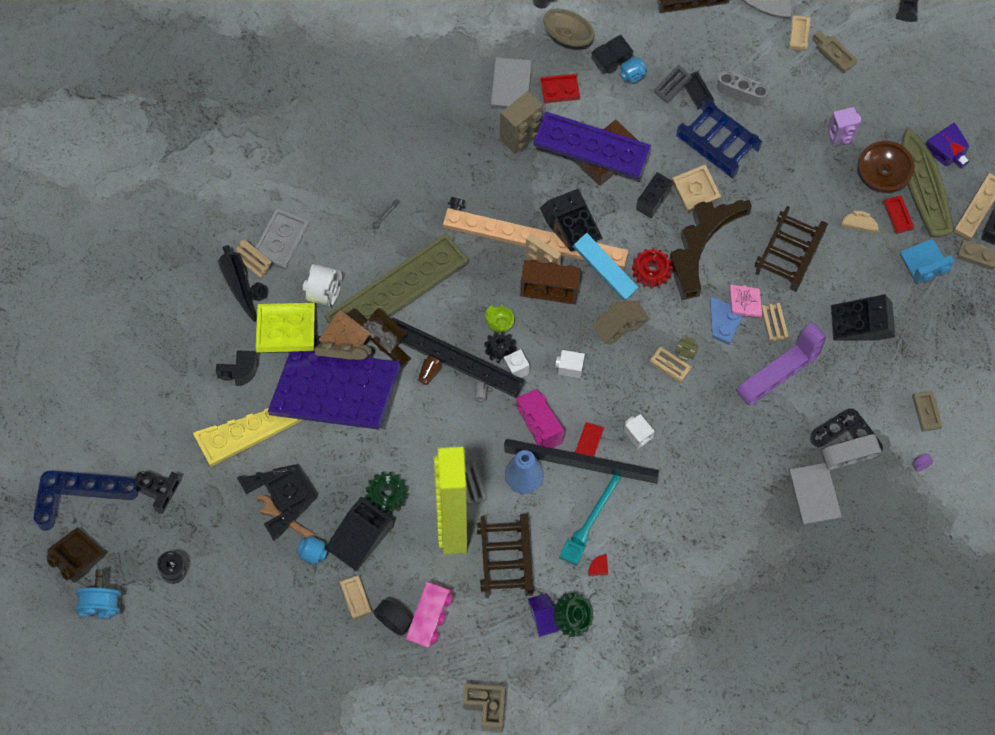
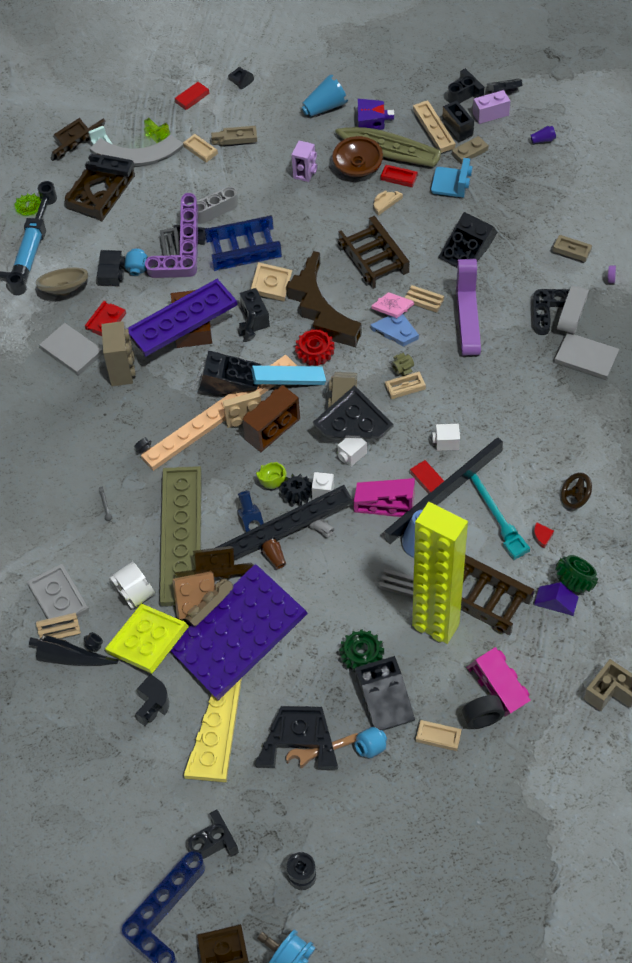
camera: 50 degrees left, 10 degrees down
(452, 324) = (249, 511): none -> dark blue bracket
(593, 344) = (353, 418): none -> black plate
(629, 201) = (245, 328): none -> black bar
(660, 571) = (578, 491): none -> dark brown piece
(678, 92) = (186, 242): none -> medium lavender beam
(935, 94) = (324, 97): none -> dark azure cone

